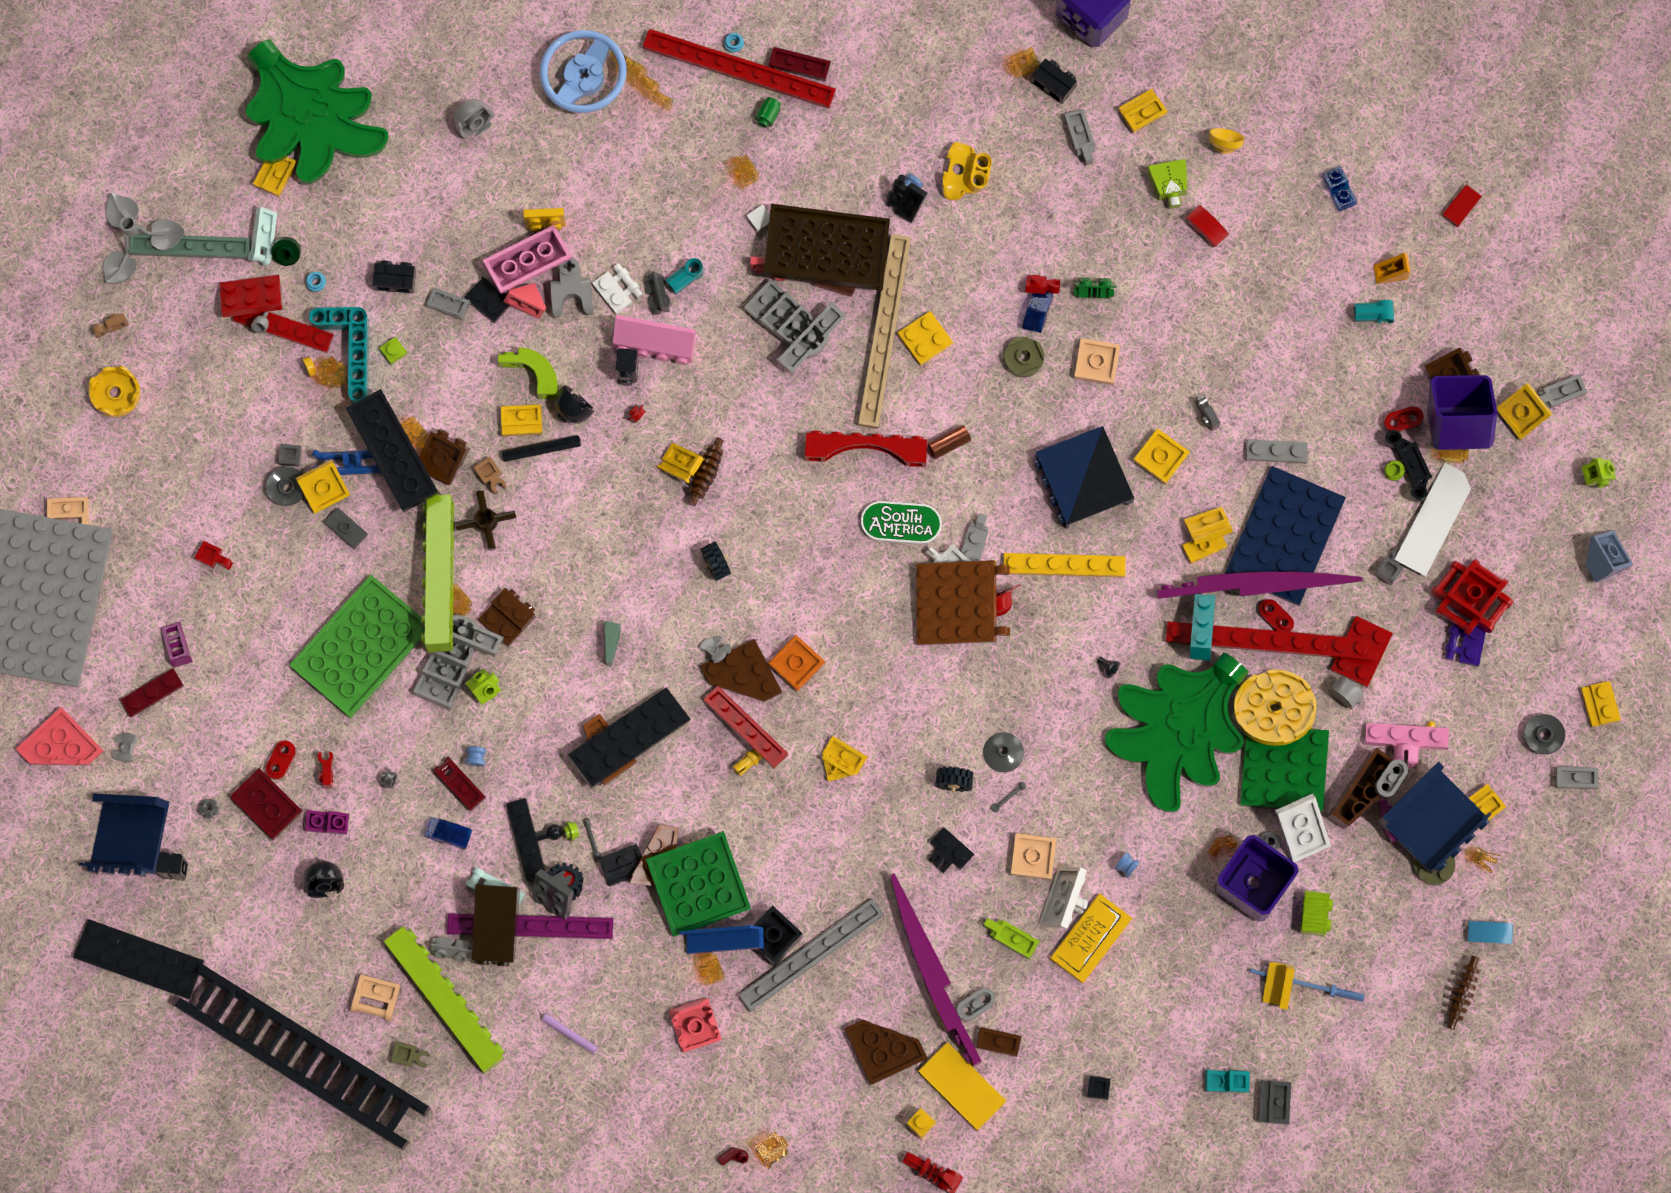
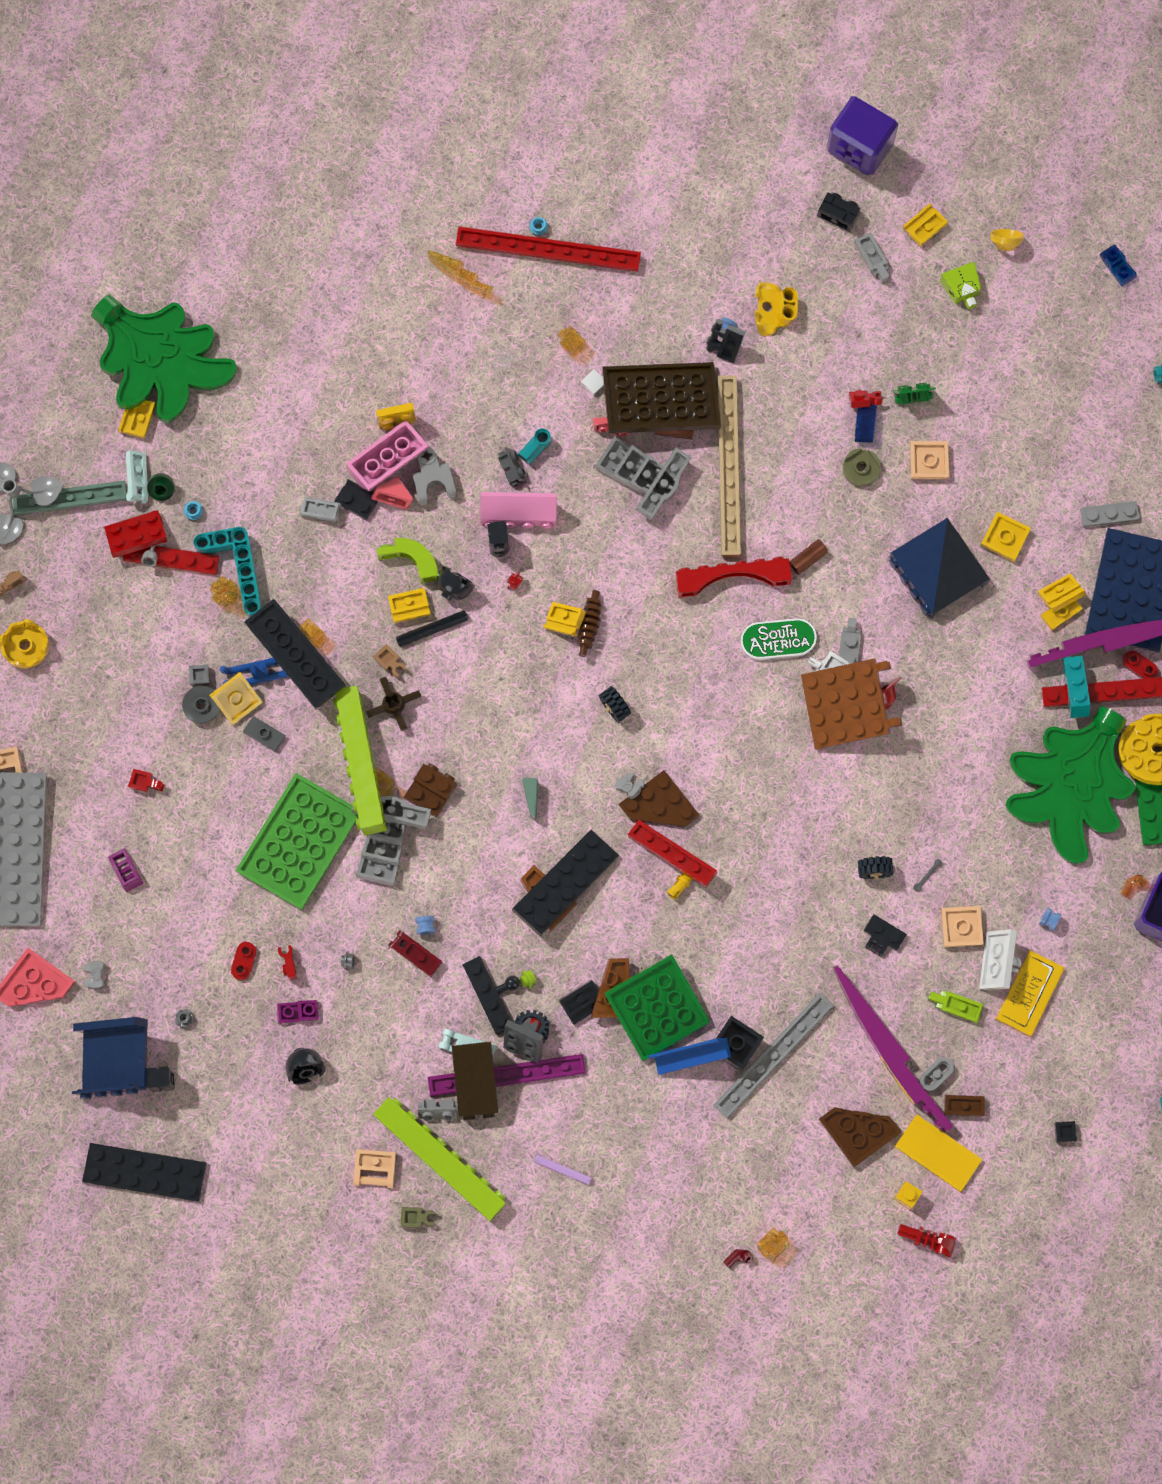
camera: 10 degrees left, 0 degrees up
(152, 693) = (111, 919): dark red plate -> none
(266, 804) = (237, 1004): dark red plate -> none
(304, 1035) = (332, 1223): black ladder -> none
(309, 366) = (202, 590): yellow tile -> none
(393, 350) = (277, 561): lime plate -> none
(394, 277) = (266, 494): black brick -> none
(443, 455) = (343, 650): reddish brown plate -> none
(448, 832) = (413, 1001): clear blue slope -> none
(472, 117) = (311, 331): light grey cylinder -> none
(483, 686) = (421, 858): lime brick -> none
(590, 63) = (409, 267): light blue piece -> none
(596, 854) = (541, 969): dark grey hinge -> none
(613, 293) = (470, 473): white plate -> none
(695, 1024) = (678, 1140): coral slope -> none
(711, 969) = (683, 1085): clear yellow brick -> none
(768, 112) = (582, 284): green brick -> none
(796, 663) = (707, 785): orange plate -> none
(799, 64) = (603, 235): dark red plate -> none
(842, 759) = (766, 868): yellow slope -> none
(925, 338) = (767, 466): yellow plate -> none
(999, 761) = (910, 843): dark grey dish -> none
(1023, 69) = (806, 206): clear yellow brick -> none
(1065, 564) = (938, 651): yellow plate -> none
(1109, 667) = (996, 739): black rock -> none
(1208, 225) = (1004, 318): red slope -> none
(1209, 416) = (1042, 494): flat silver plate -> none

